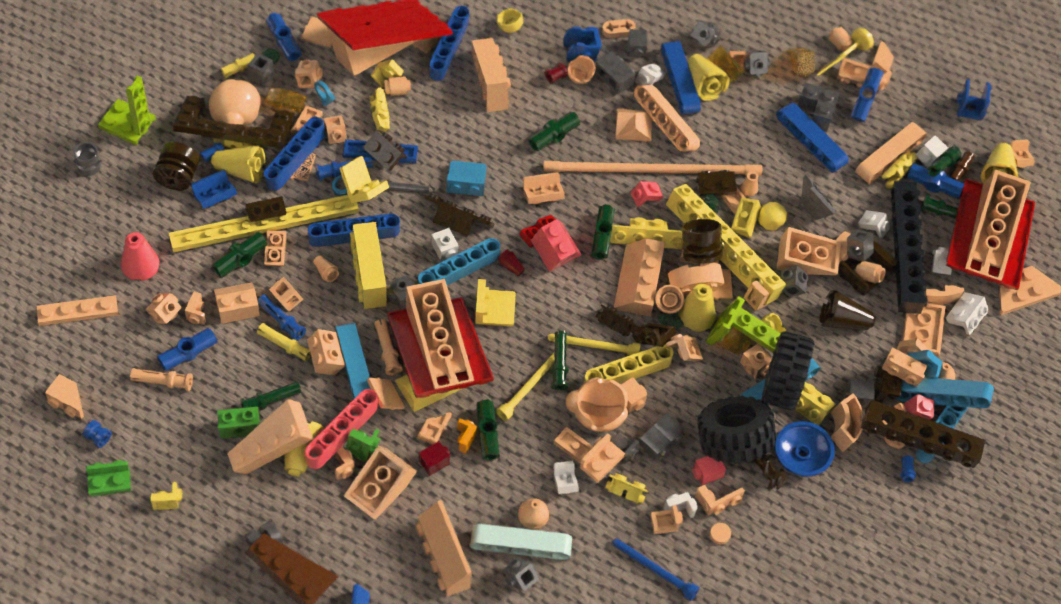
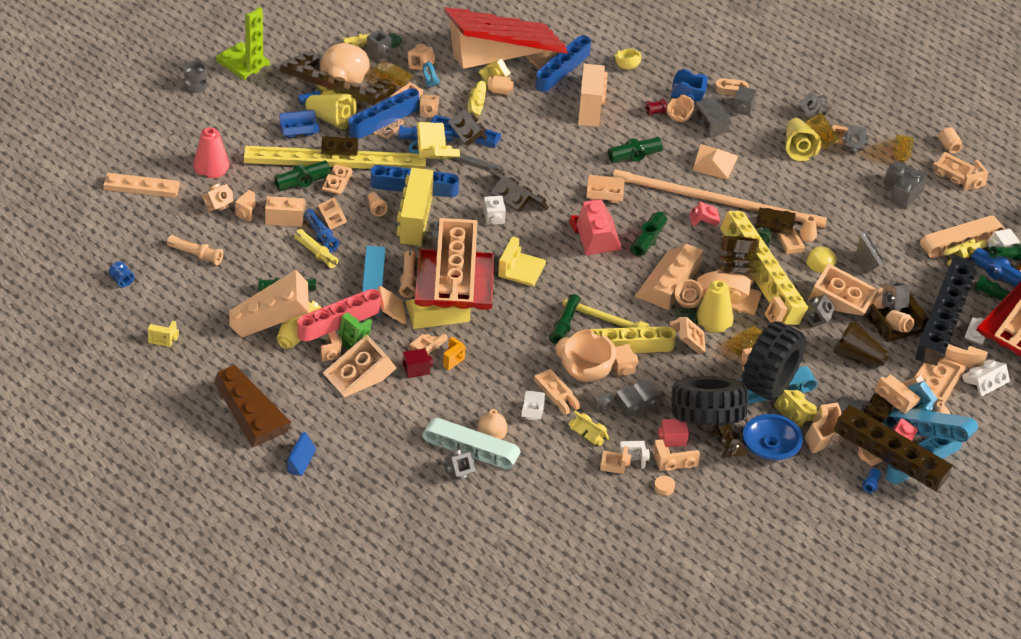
camera: 20 degrees right, 15 degrees down
(65, 395) = (105, 241): light nougat slope -> none
(108, 478) = (118, 308): bright green bracket -> none
(176, 166) = (271, 97): dark brown wheel -> none
(177, 354) = (226, 232): blue piece -> none
(237, 422) = (244, 289): bright green brick -> none
(283, 37) = (410, 26): blue piece -> none
(316, 33) = (441, 32): light nougat piece -> none
(326, 352) = (349, 261): light nougat brick -> none
(444, 549) = (395, 429): light nougat slope -> none
(465, 260) = (506, 227): dark azure beam -> none
(466, 178) = (535, 167): dark azure bracket -> none
(488, 440) = (475, 354): dark green piece -> none
(506, 410) = (498, 344): light yellow piece -> none
(510, 261) = (550, 237): dark red cone -> none
(601, 458) = (571, 396): light nougat bracket -> none
(609, 315) = (638, 306): dark brown hinge -> none
(646, 229) = (669, 240): light yellow bracket -> none
(649, 75) = (744, 126): white bracket -> none
(653, 334) = (658, 317): dark brown bracket -> none
(666, 118) = (748, 162): light nougat beam -> none
(680, 77) = (776, 136): blue beam -> none
(689, 590) = (615, 518): blue piece -> none
(744, 322) = (743, 319): lime bracket -> none
(746, 217) = (795, 254): light yellow slope -> none
(812, 137) = (887, 208): blue beam -> none
(862, 41) = (969, 144): light yellow piece -> none
(864, 104) = (960, 176): blue piece -> none
(875, 221) = (925, 286): white bracket -> none
(884, 56) = (989, 163): light nougat tile -> none

